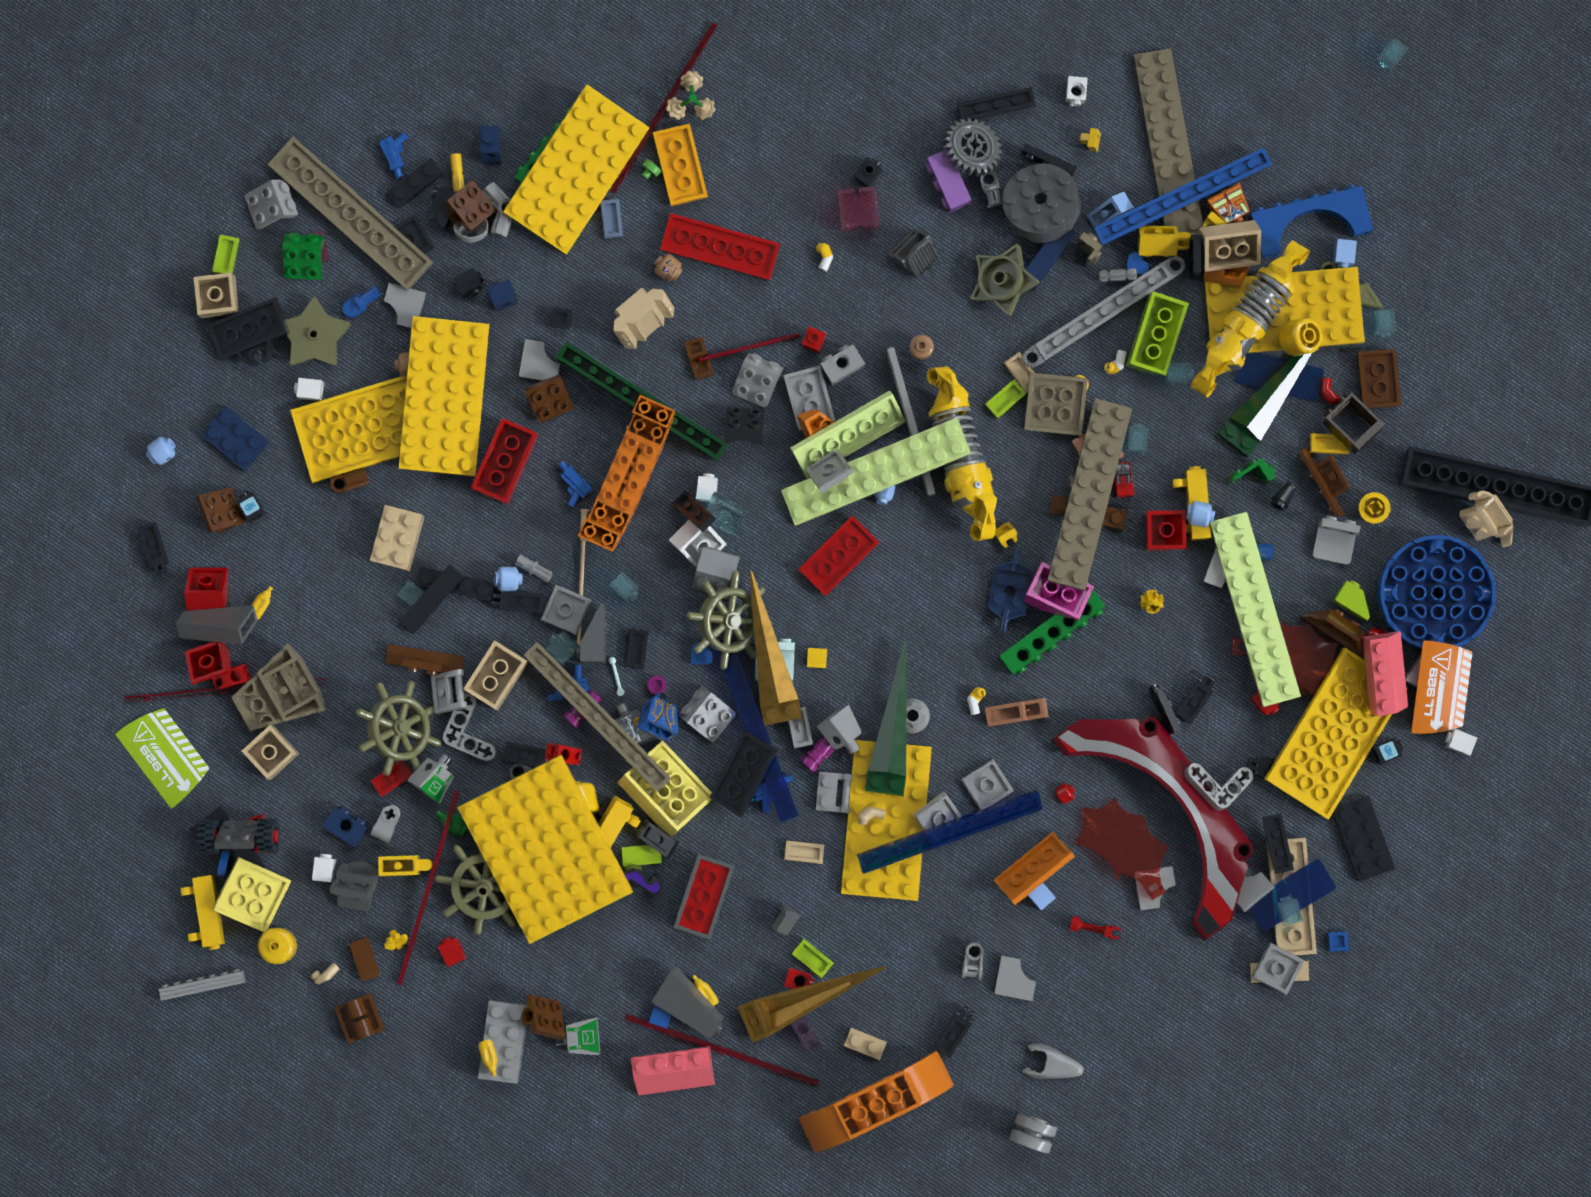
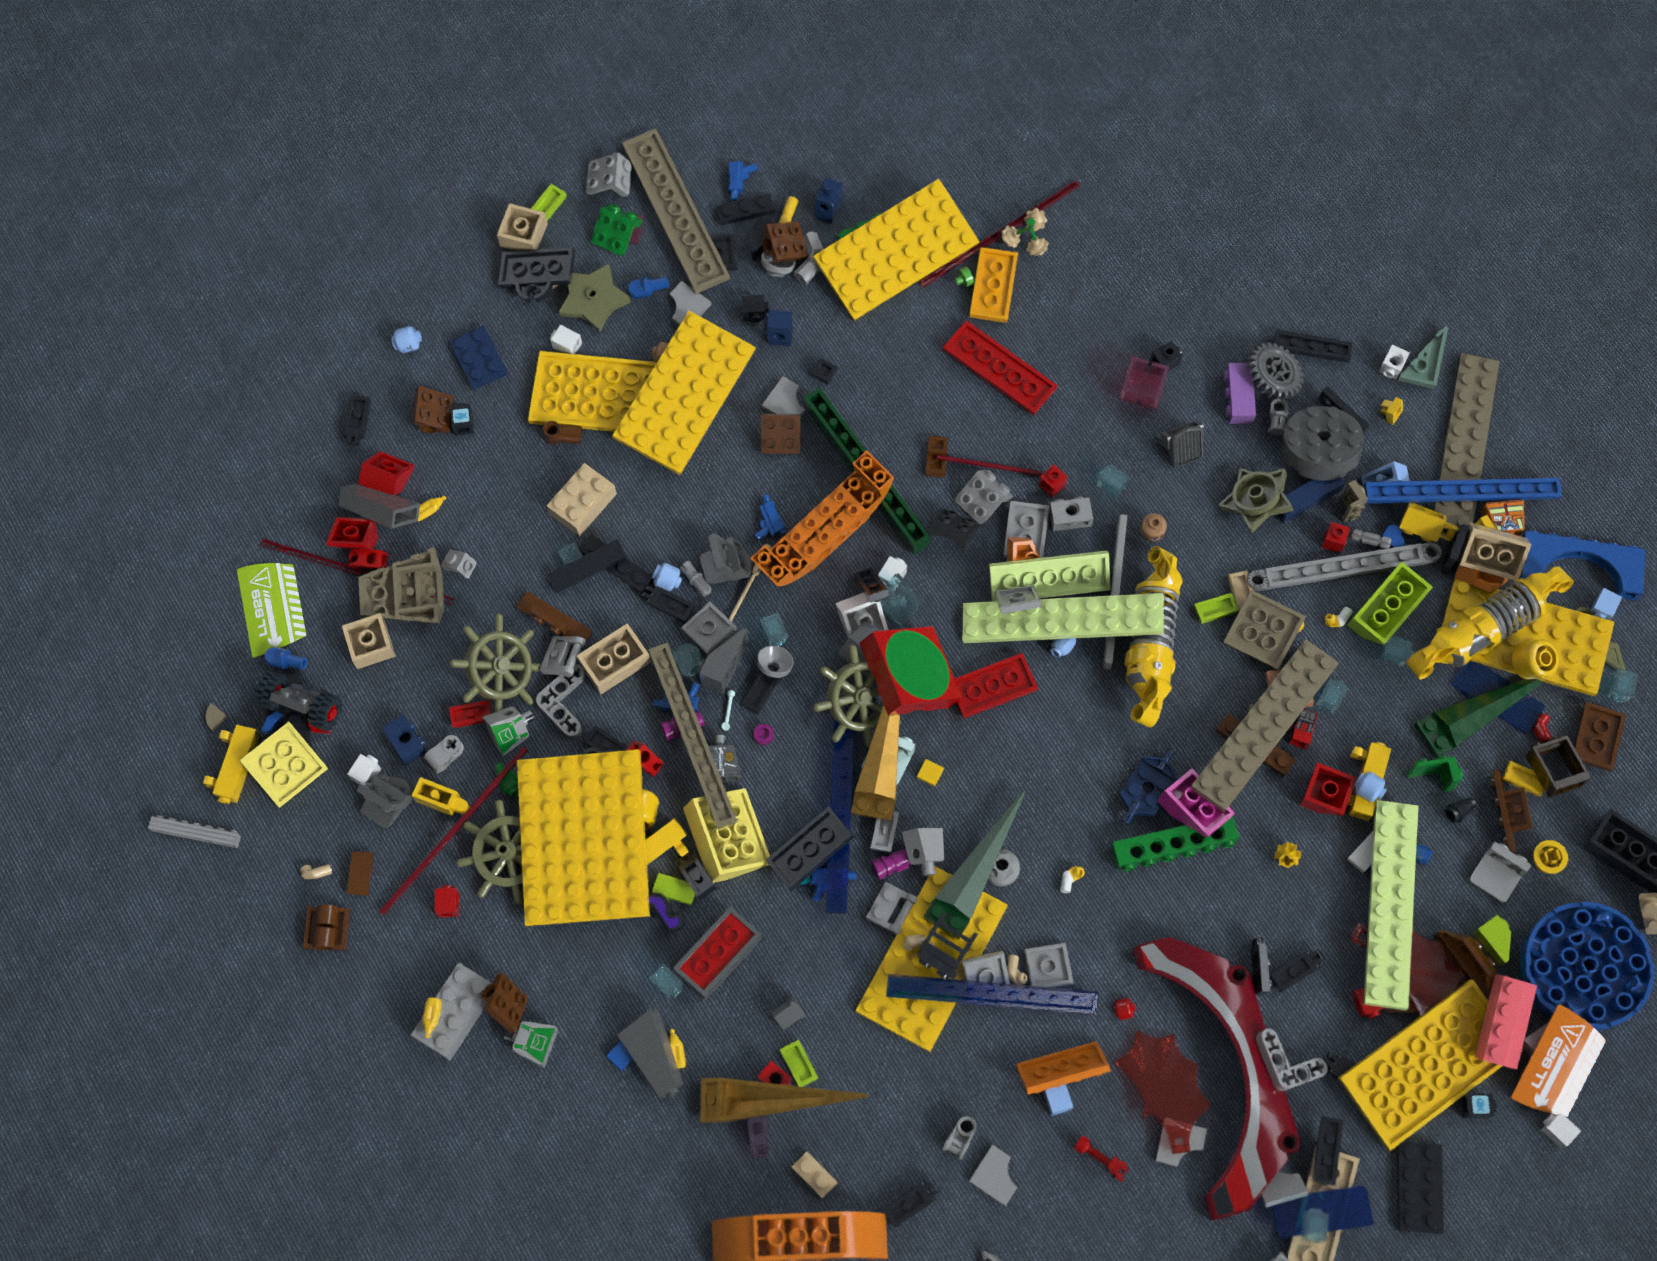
camera: 25 degrees right, 15 degrees down
(166, 877) = (214, 717): none -> dark tan tile
(201, 799) = (283, 659): none -> blue arm
(276, 953) = (283, 823): yellow head -> none
(314, 644) = (459, 562): none -> light grey bracket
(395, 941) = (398, 868): yellow plant -> none
(505, 461) = (713, 471): red brick -> none
(554, 541) = (725, 560): none -> dark grey piece
(611, 218) = (910, 306): sand blue tile -> none
(637, 610) = (777, 657): none -> light grey piece
(641, 316) = (900, 395): tan slope -> none
(659, 717) = (751, 762): blue torso -> none
(667, 267) = (943, 365): medium nougat head -> none
(671, 938) = (666, 982): none -> clear light blue brick
(673, 1070) = (607, 1115): coral slope -> none
(703, 658) = (818, 723): blue tile -> none
(707, 714) = (800, 781): light grey bracket -> none
(726, 1051) = (669, 1119): dark red piece -> none
(763, 578) = (910, 670): none -> tile
(804, 852) = (836, 954): tan tile -> none
(826, 254) = (1097, 414): arm -> none
(866, 316) = (1112, 480): none -> clear light blue brick
(892, 823) = (932, 956): none -> black plate
(959, 803) = (1013, 973): none -> tan arm
(1005, 533) = (1166, 729): yellow tile -> none
(1016, 712) = (1108, 906): nougat slope -> none
(1086, 288) = (1335, 537): none -> red brick
(1106, 83) = (1426, 366): none -> sand green wing

